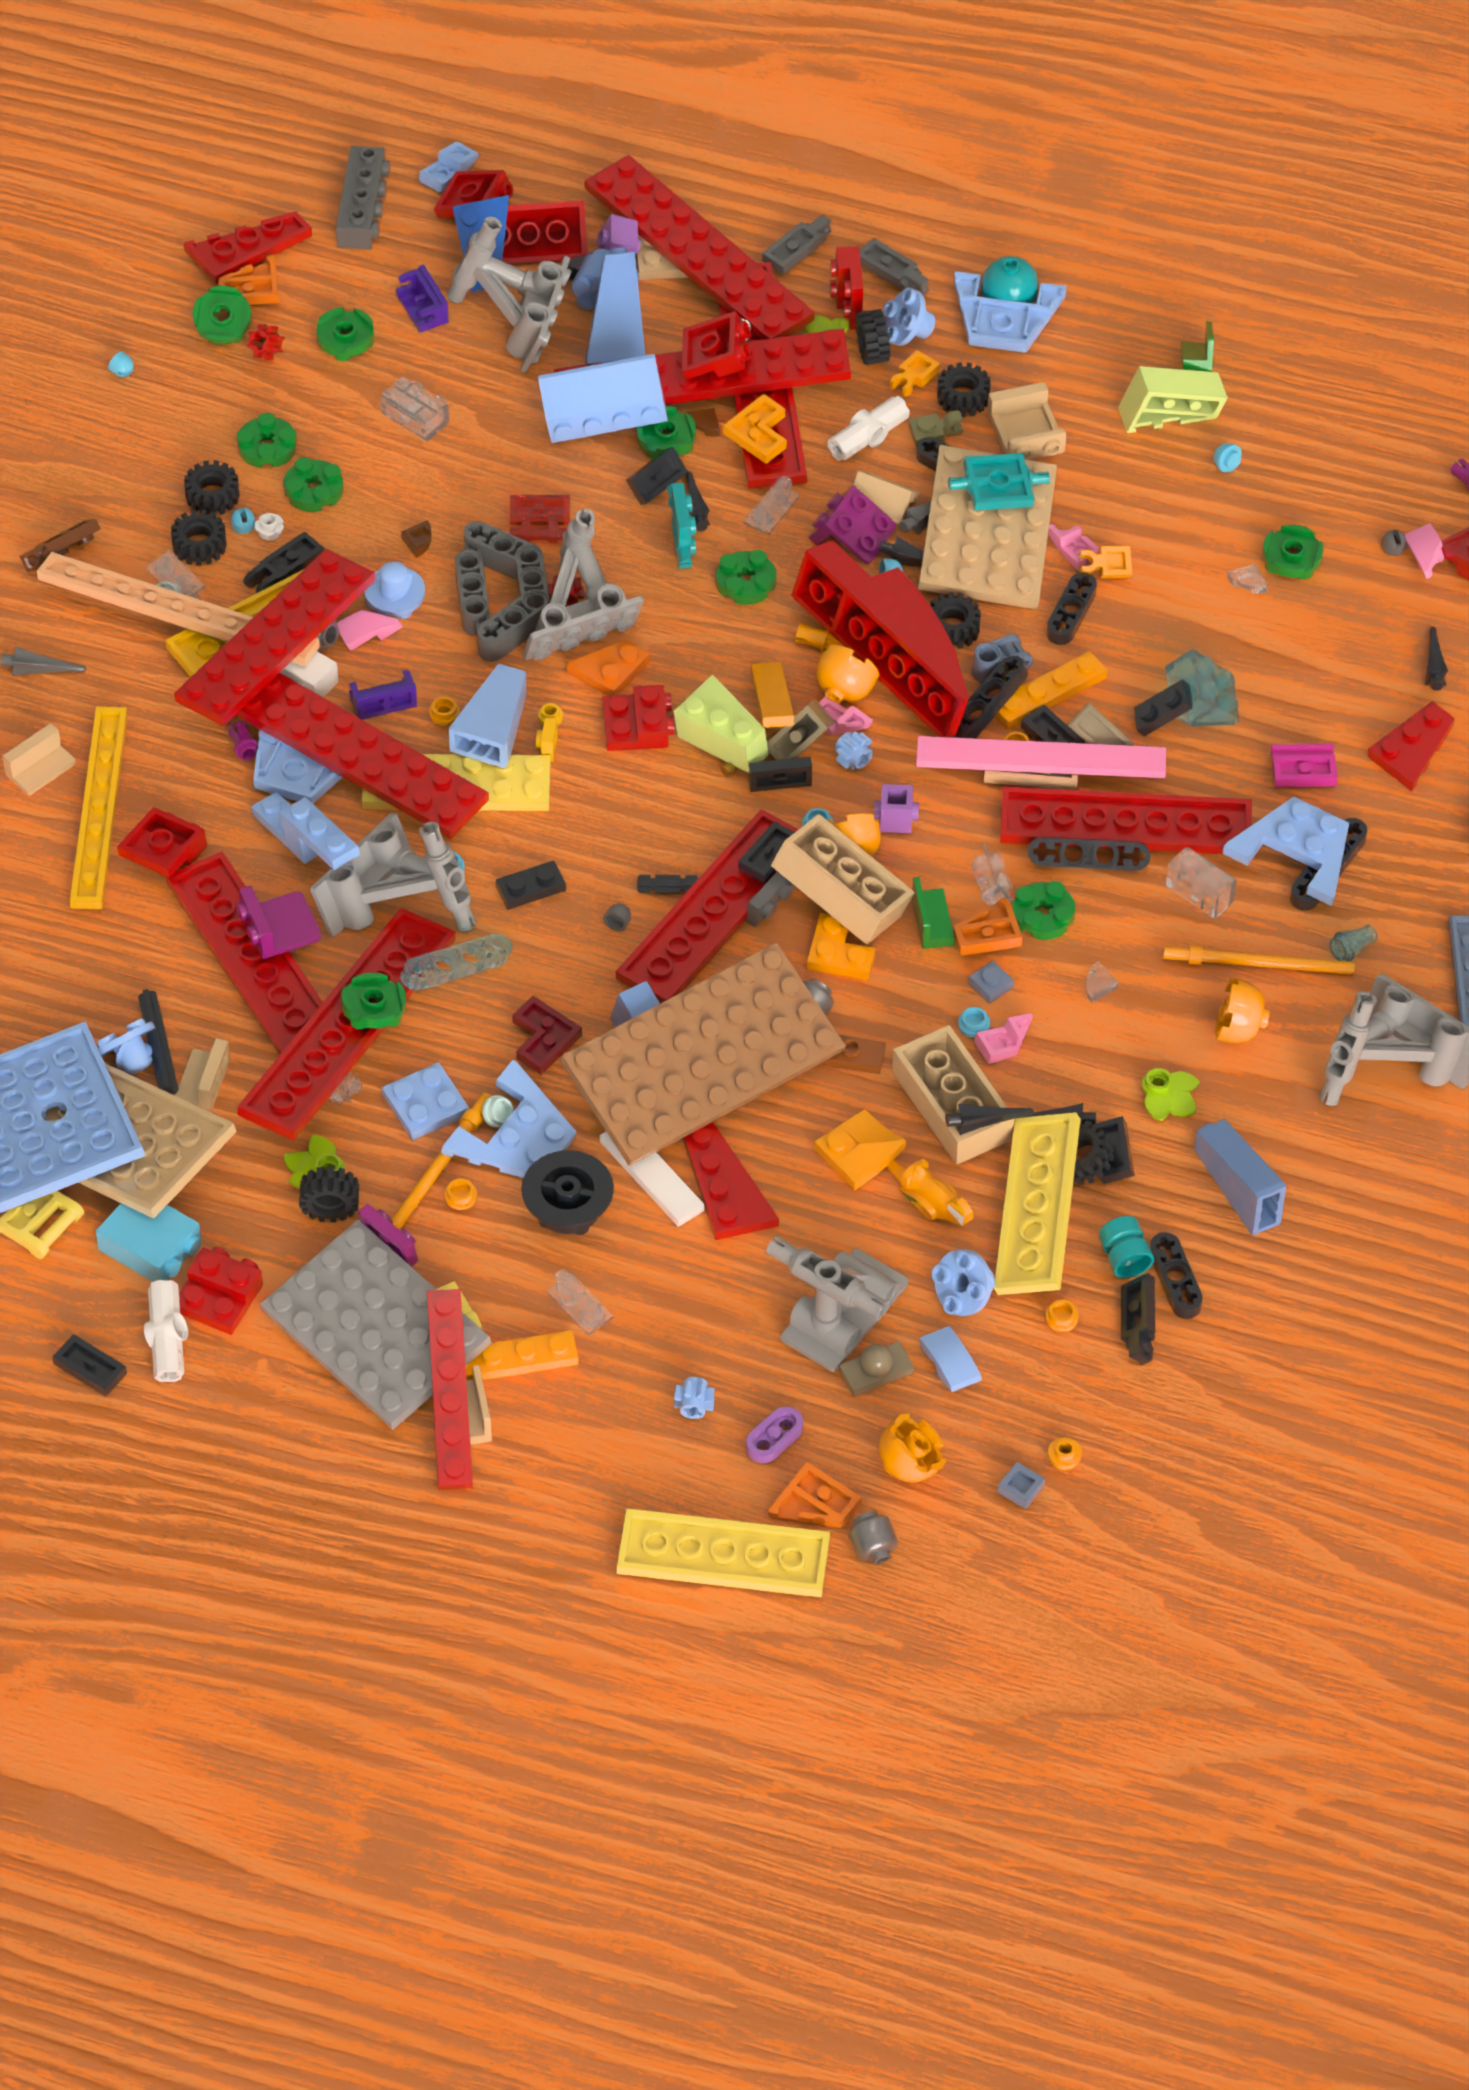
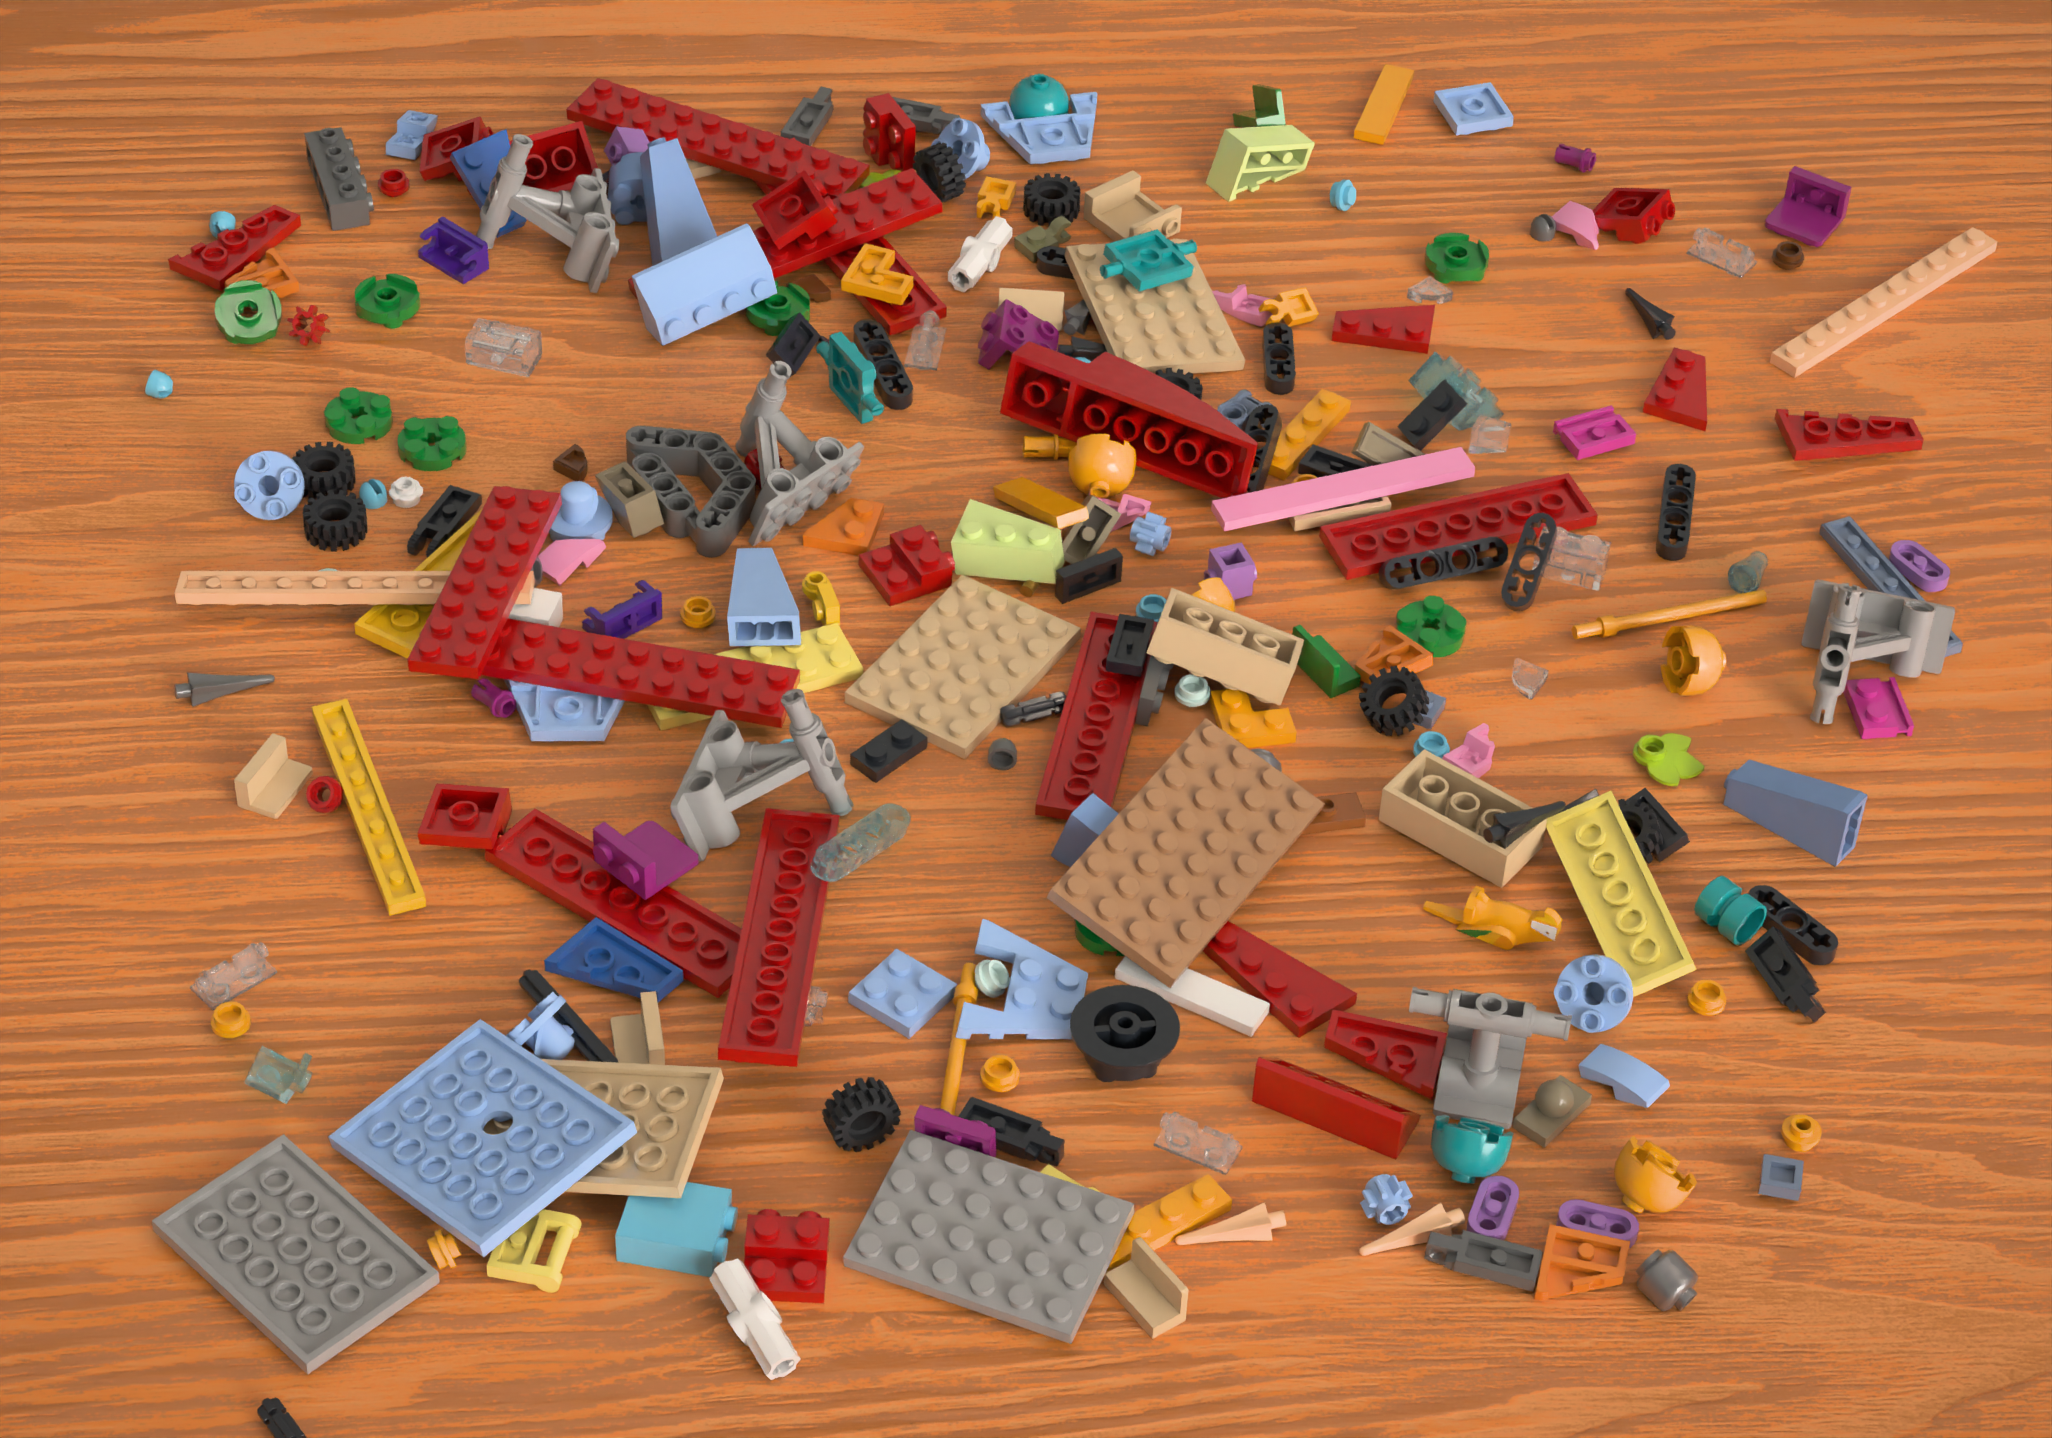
camera: 25 degrees left, 10 degrees down
(58, 544) = (198, 549): reddish brown hinge -> none
(64, 784) = (316, 789): none -> red plate
(89, 1365) = (682, 1386): black plate -> none
(157, 491) = (269, 485): none -> light blue plate
(175, 575) = (326, 556): clear hinge -> none
(216, 1003) = (614, 962): none -> blue wing
(246, 216) = (224, 220): none -> medium azure hinge
(305, 830) = (623, 758): light blue bracket -> none
(320, 1154) = (816, 1087): lime plate -> none
(362, 1013) = (816, 905): green plate -> none
(408, 213) = (393, 183): none -> red plate
(438, 589) = (631, 499): none -> dark tan slope
(439, 1245) = (1016, 1132): none -> black hinge
(449, 1389) = (1122, 1274): plate -> none
(539, 510) = (694, 404): clear red plate -> none
(550, 1034) = (1000, 883): dark red plate -> none
(580, 1382) = (1249, 1225): none -> light nougat piece
(634, 825) = (963, 665): none -> tan plate
(704, 1304) = (1332, 1106): none -> red slope
(718, 1431) = (1417, 1230): none -> light nougat piece
(723, 1552) = (1517, 1351): light yellow plate -> none
(725, 515) = (887, 363): none -> black beam
(745, 1471) = (1486, 1258): none -> dark grey hinge
(746, 563) = (925, 408): green plate -> none
(767, 1274) = (1388, 1048): none -> red wing
(782, 1377) = (1470, 1147): none -> teal cylinder
(805, 909) = (1192, 691): none -> light aqua plate
(852, 1473) = (1598, 1220): none -> medium lavender plate
(859, 1148) = (1395, 901): light orange plate -> none
(972, 980) = (1401, 715): none -> black tyre
(991, 878) = (1358, 607): clear hinge -> none
(1141, 878) = (1547, 542): none -> black beam
(1188, 605) = (1389, 328): none -> red wing
(1205, 741) = (1489, 435): none -> clear slope
(1303, 835) = (1644, 489): light blue wing -> none
(1329, 368) = (1383, 104): none -> light orange tile
(1383, 1104) = (1878, 708): none -> dark pink plate
(1406, 397) = (1473, 108): none -> light blue plate

